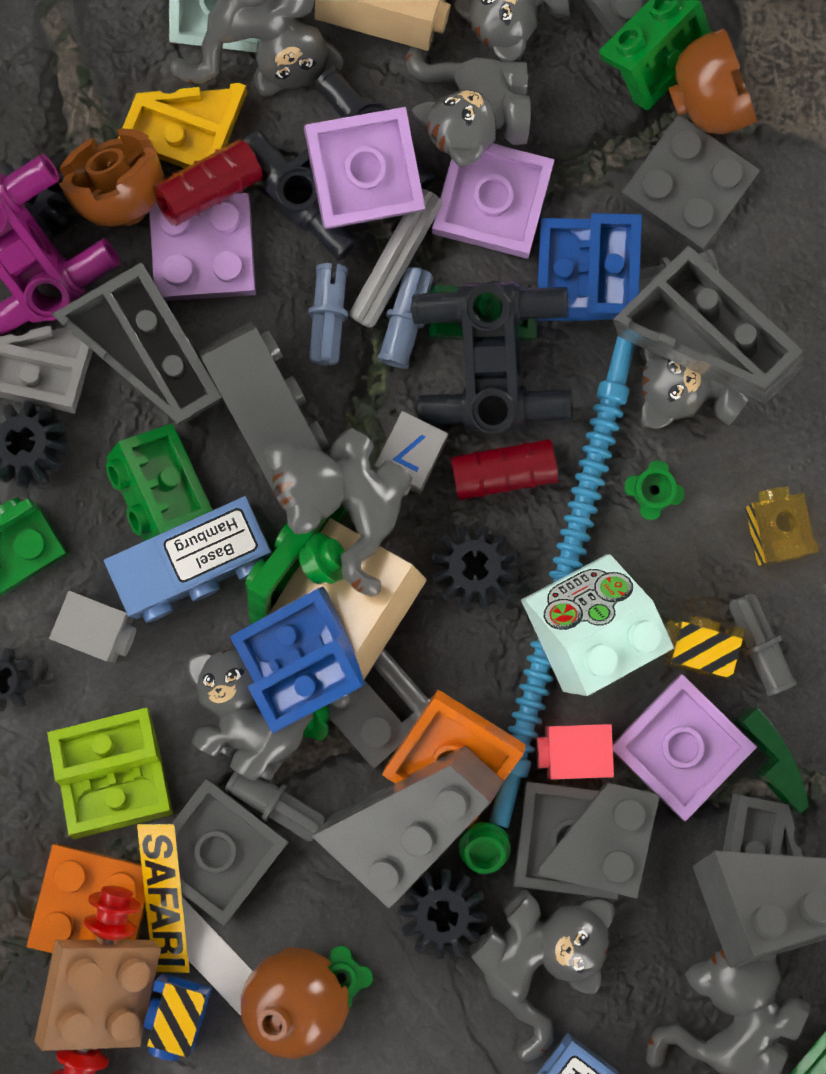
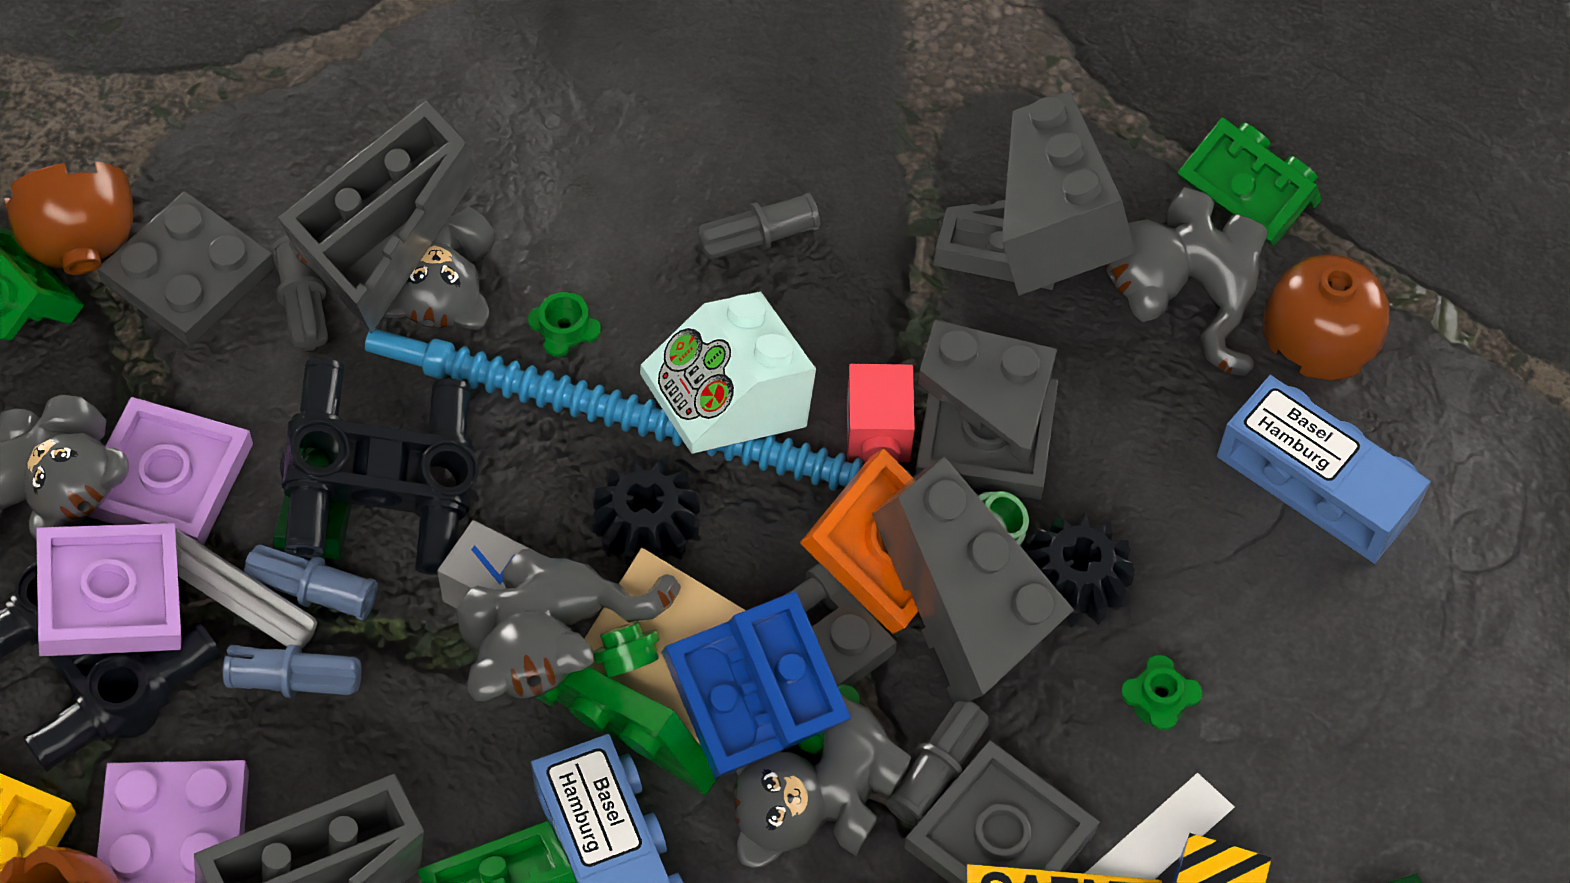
camera: 90 degrees left, 25 degrees down
(207, 182) = (88, 794): dark red axle -> none
(257, 393) = (417, 730): dark grey wedge -> none
(293, 1004) = (1195, 739): dark orange cylinder -> none
(504, 469) = (523, 475): dark red axle -> none
(567, 943) = (1111, 443): dark grey animal -> none
(594, 260) = (263, 357): blue slope -> none
(682, 747) = (875, 306): lavender plate -> none
(703, 648) = (764, 265): brick -> none
(769, 541) = (622, 197): clear yellow brick -> none
(780, 771) = (905, 212): dark green slope -> none

